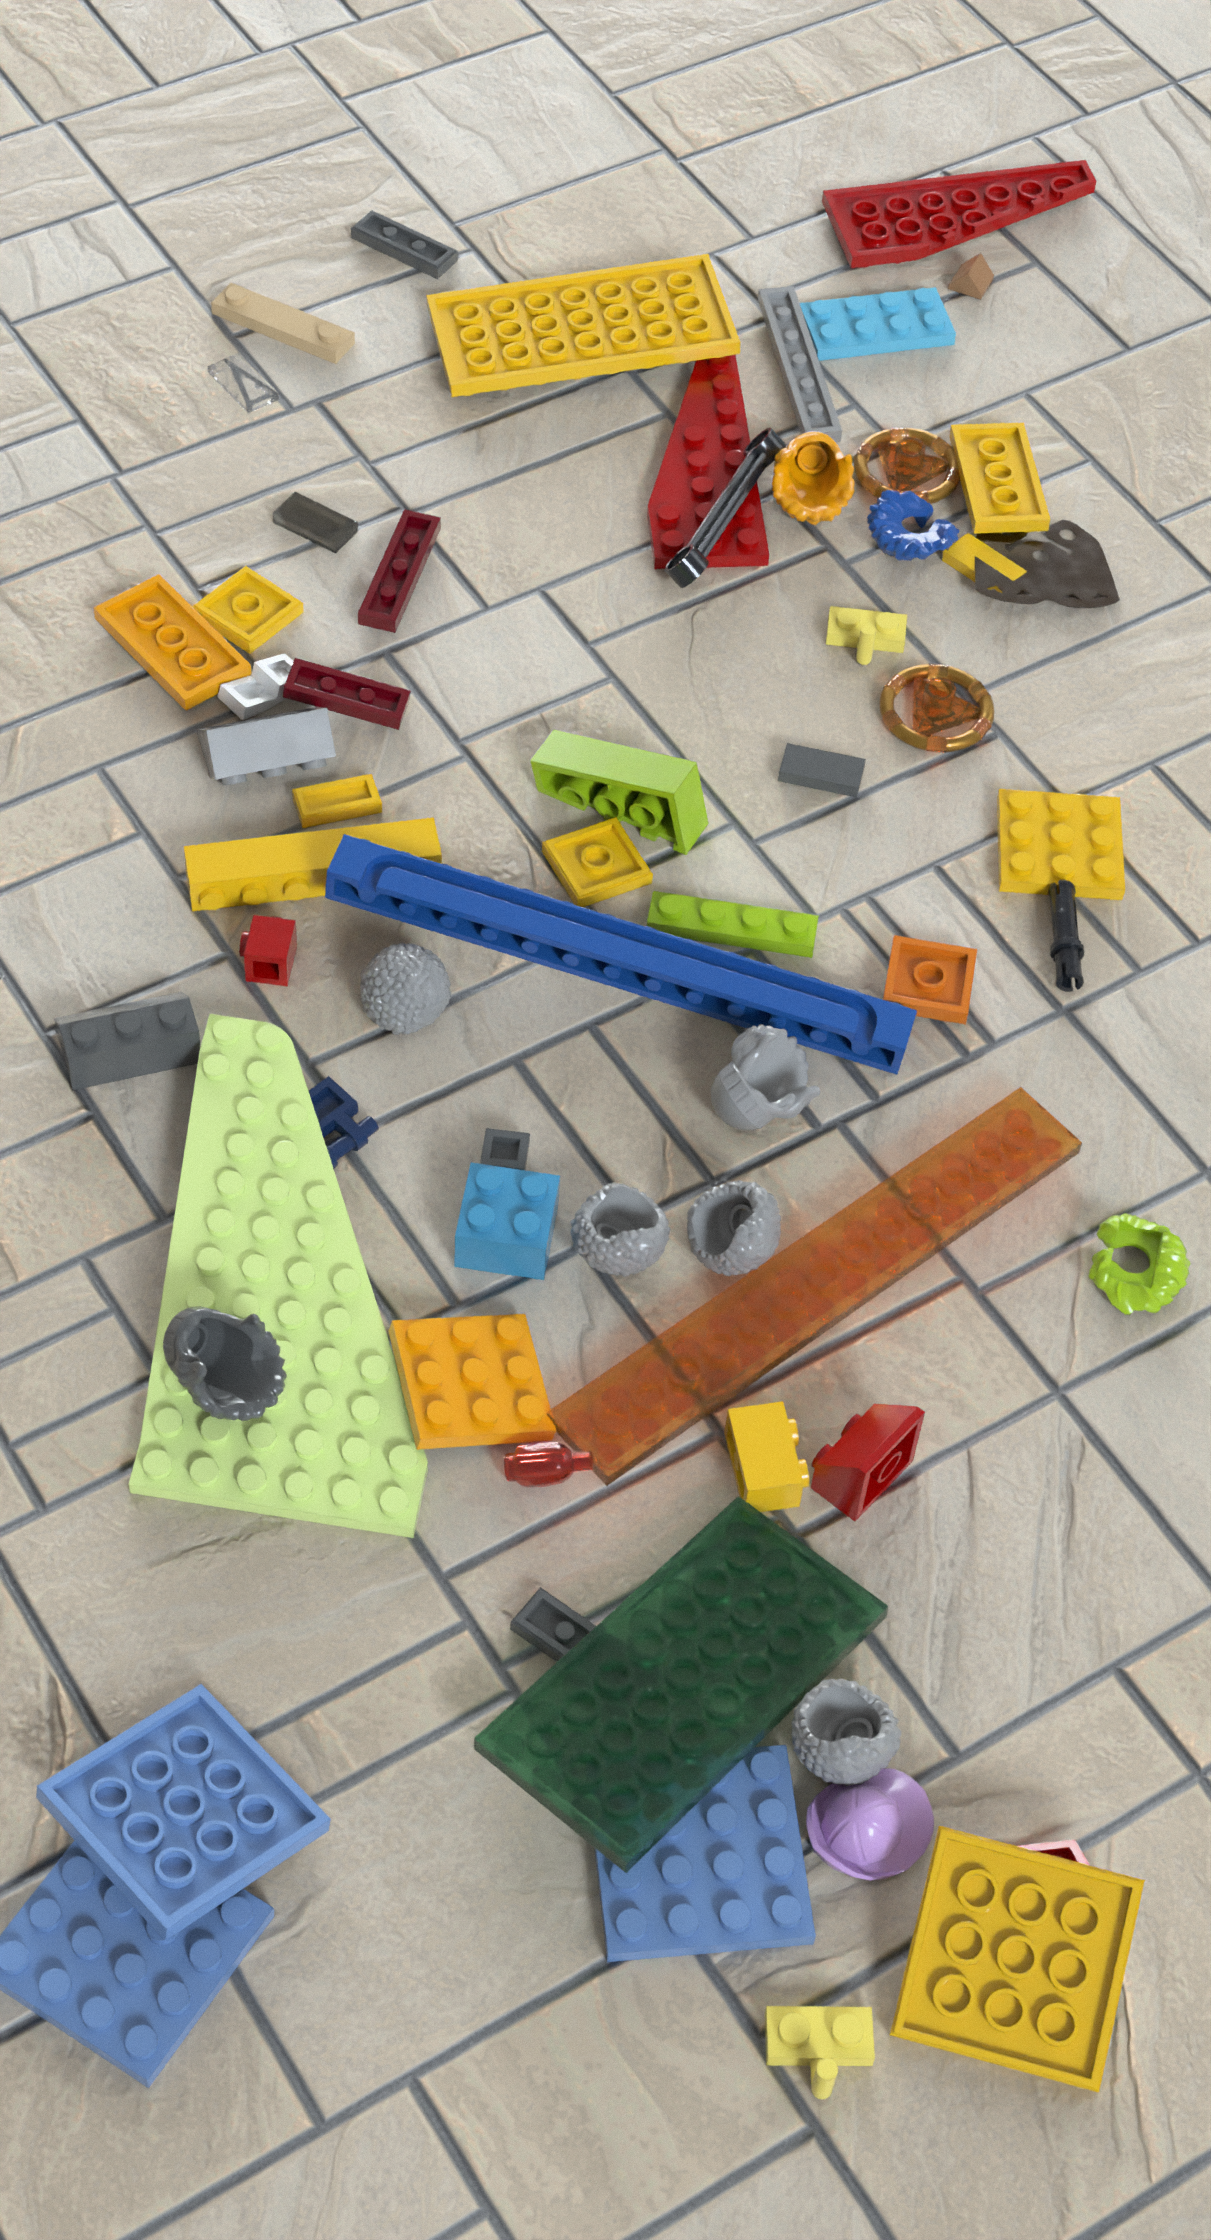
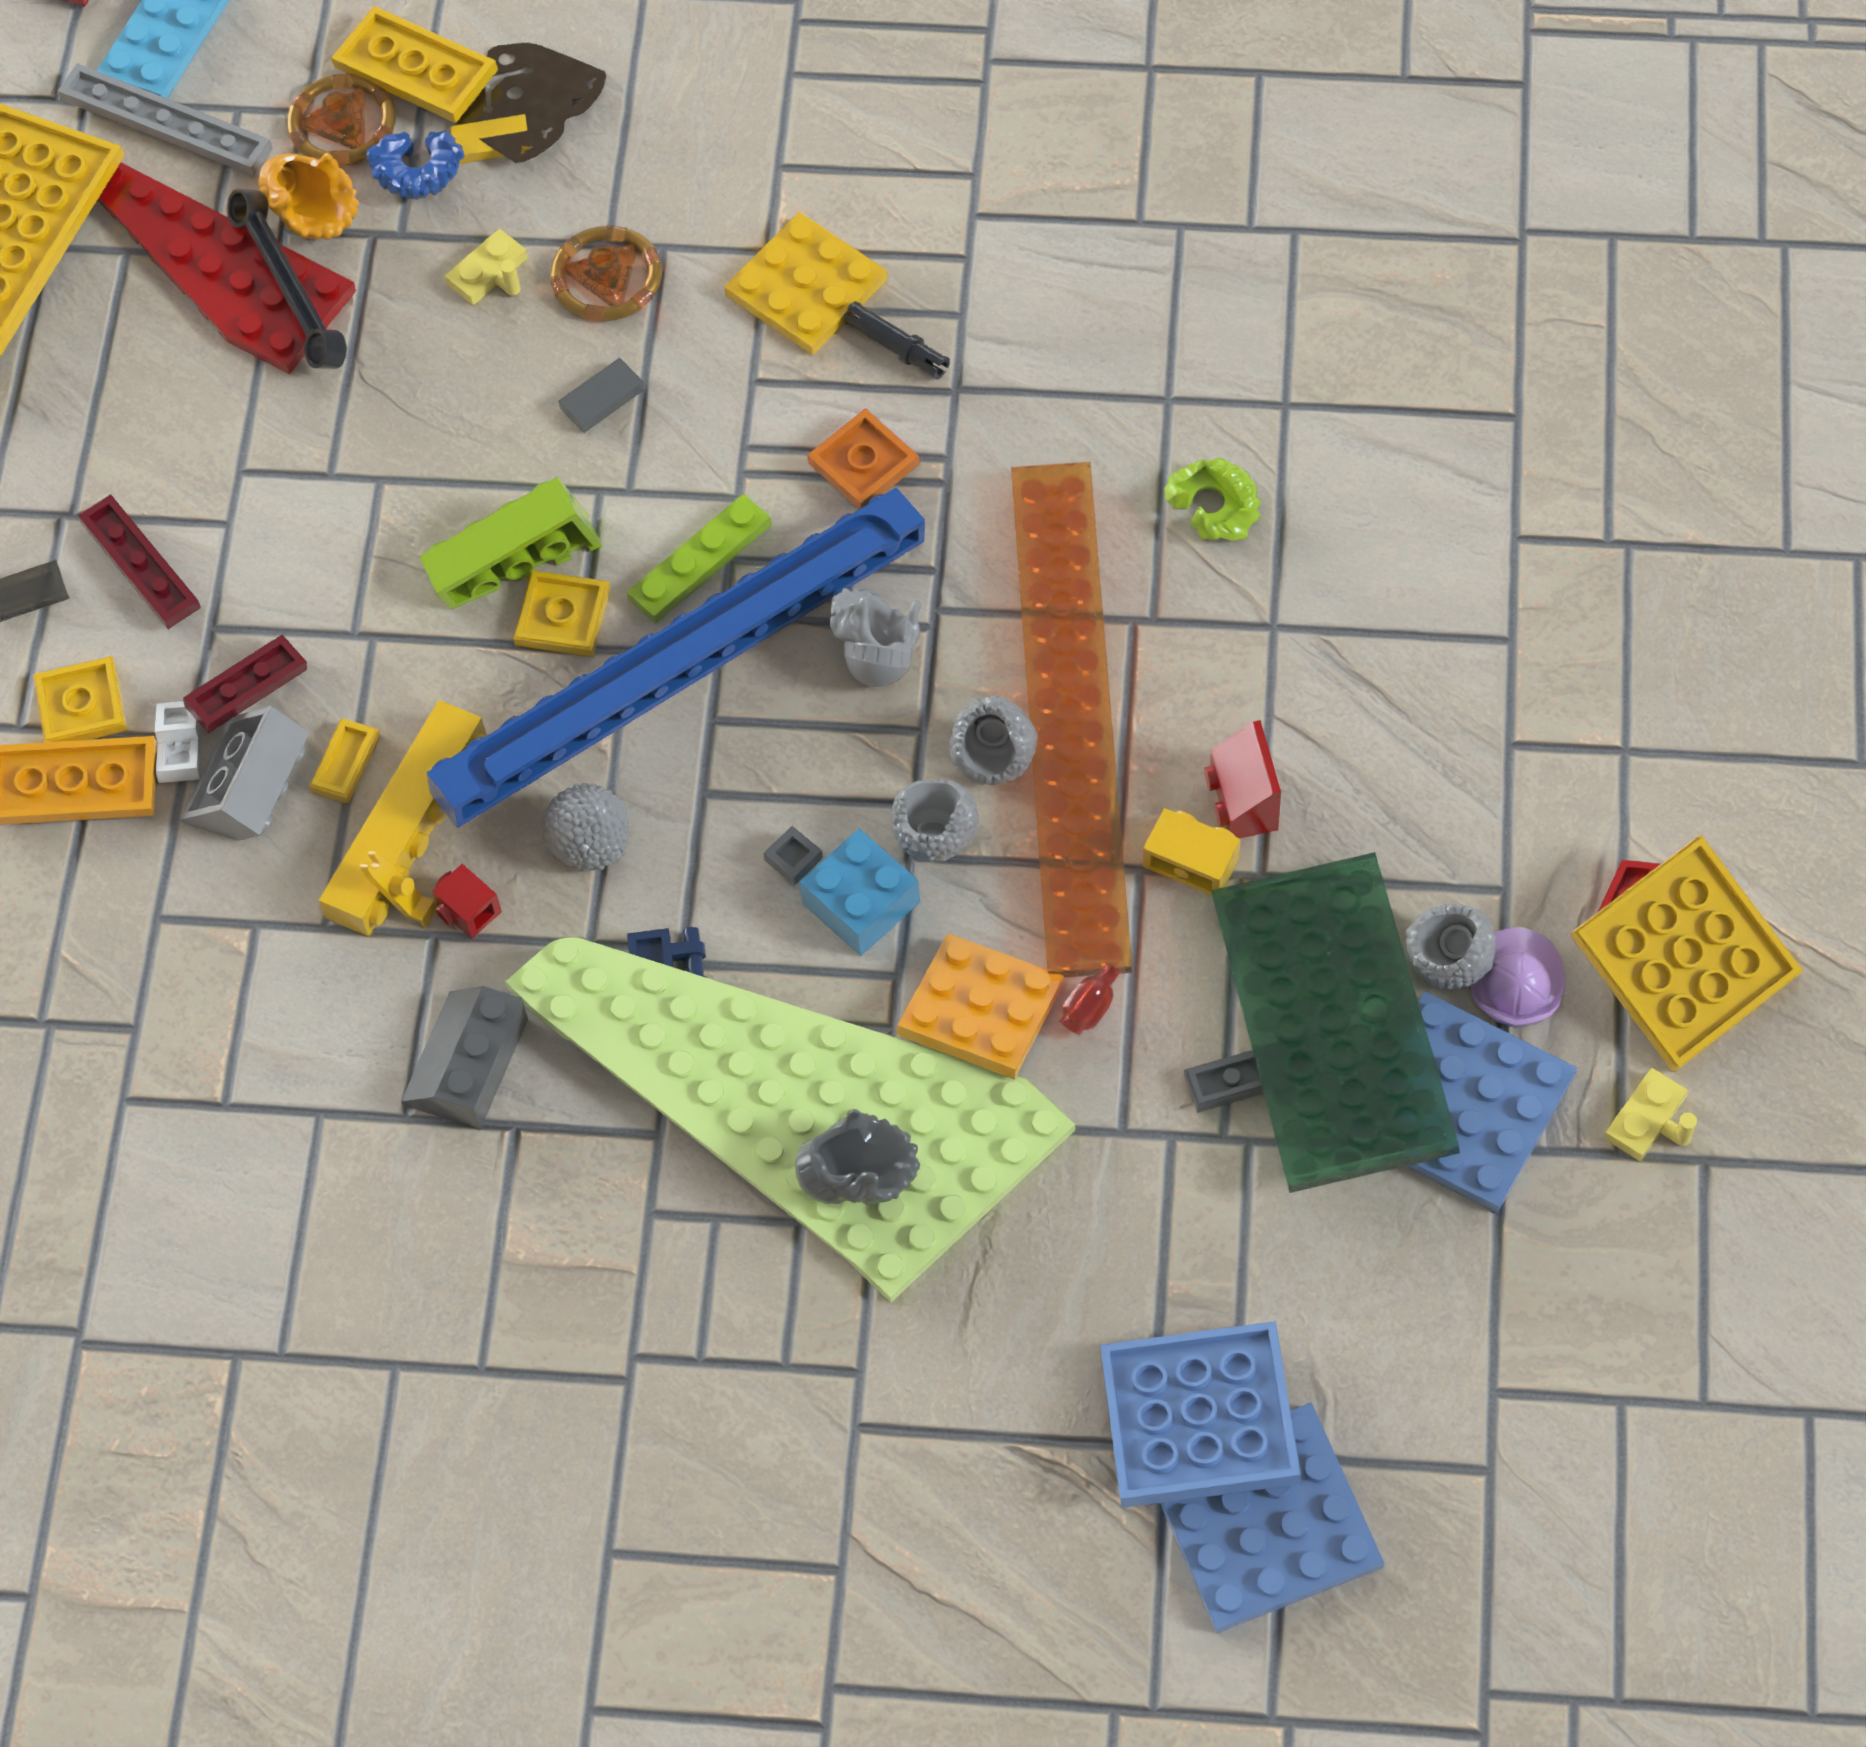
camera: 45 degrees left, 10 degrees up
(236, 890) = (398, 889): none -> yellow piece

